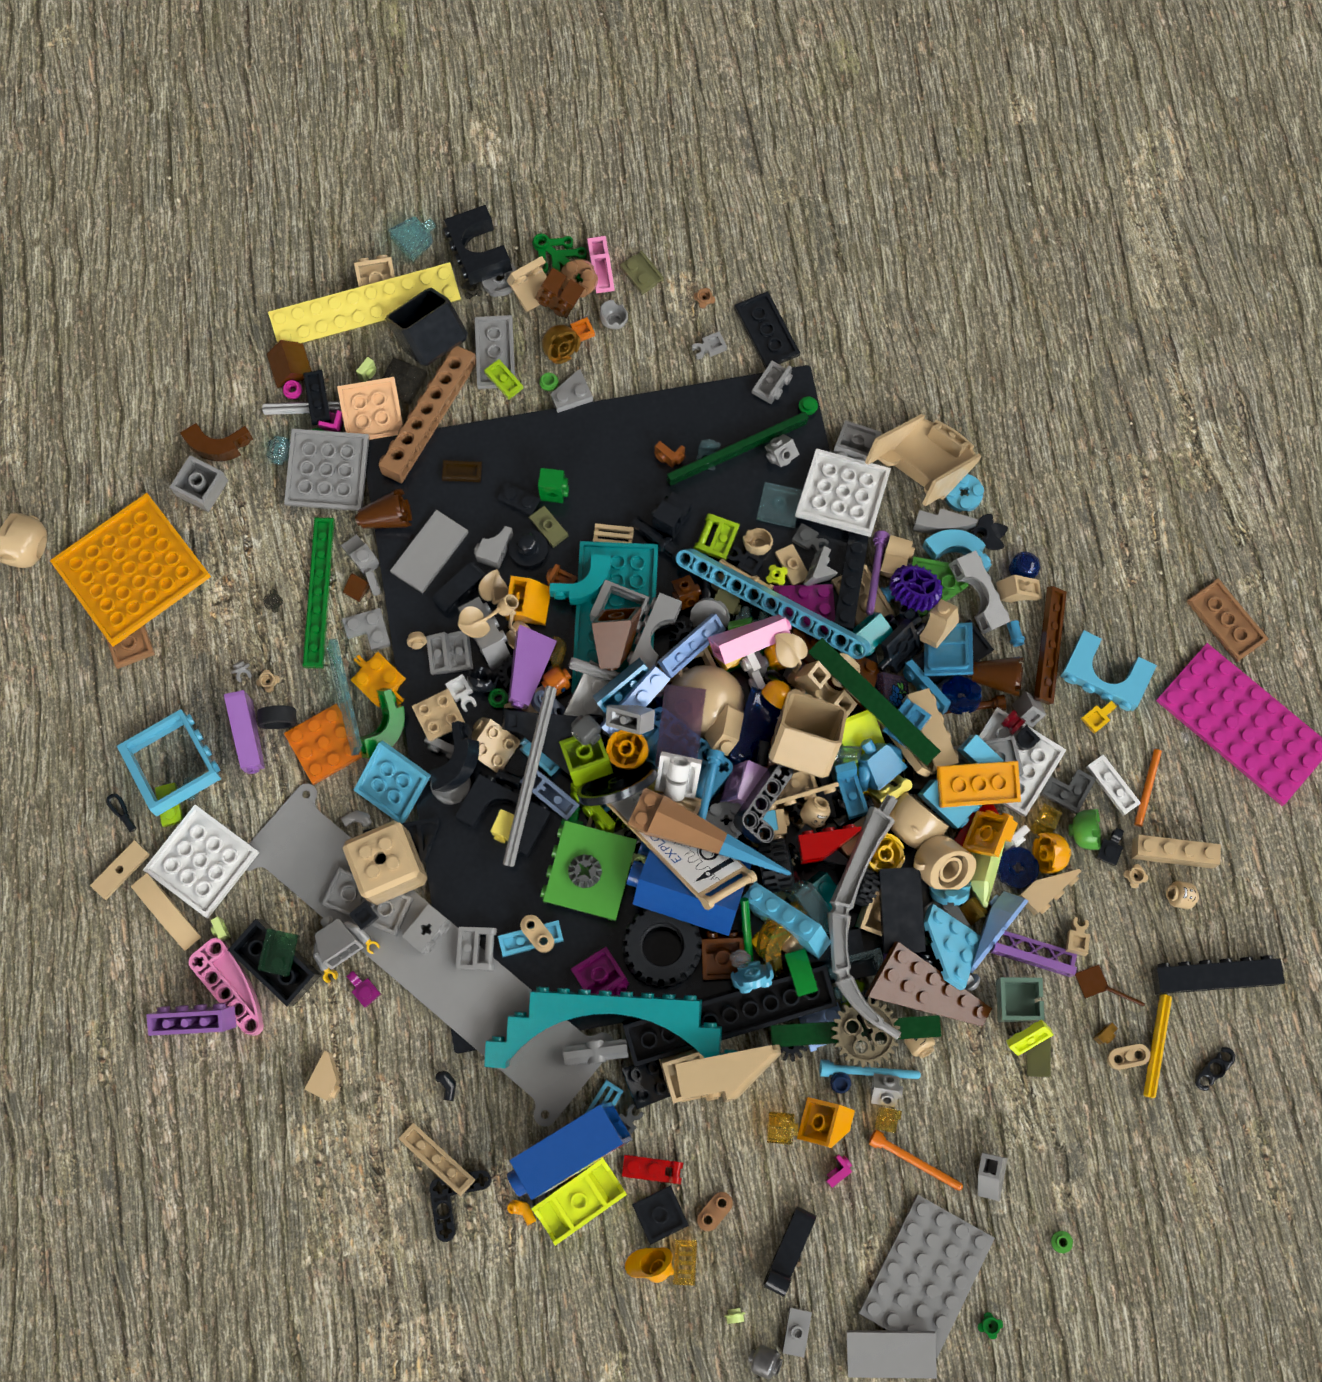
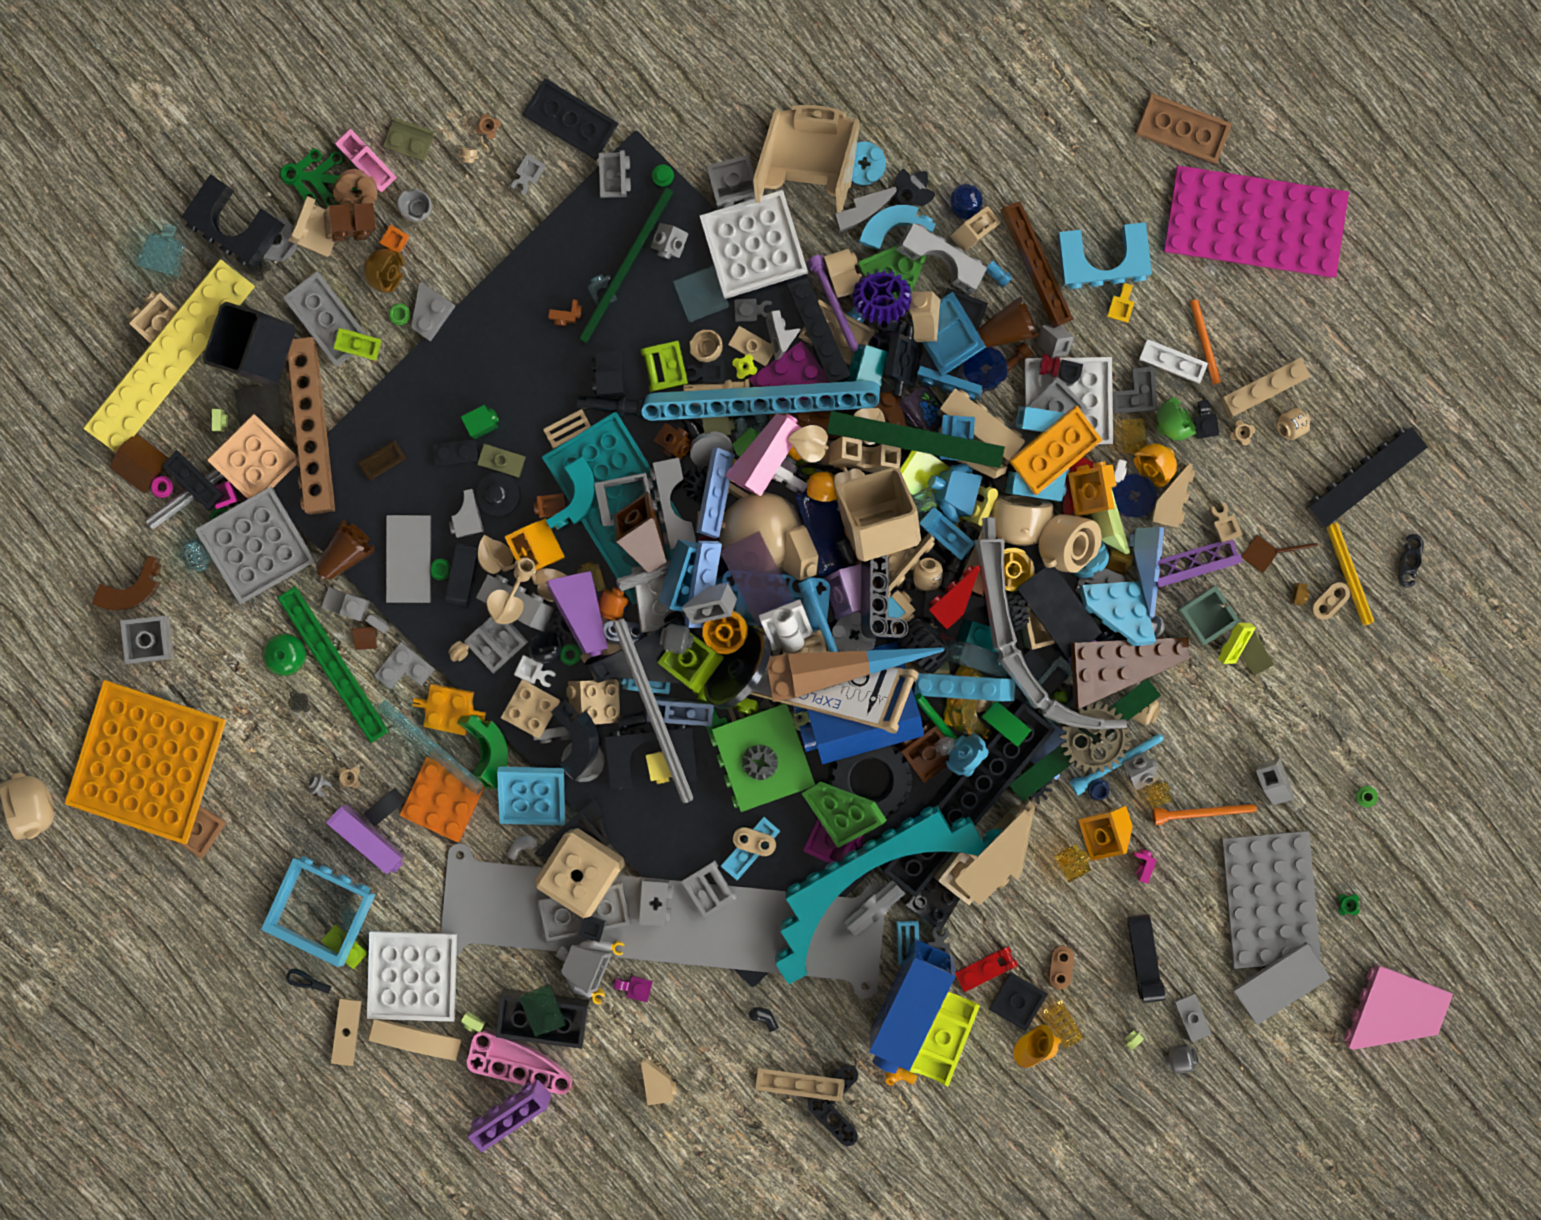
camera: 30 degrees left, 15 degrees up
(288, 561) = (284, 654): none -> green cylinder
(446, 573) = (440, 569): none -> green plate
(622, 953) = (843, 813): none -> bright green plate
(676, 307) = (468, 154): none -> tan plate

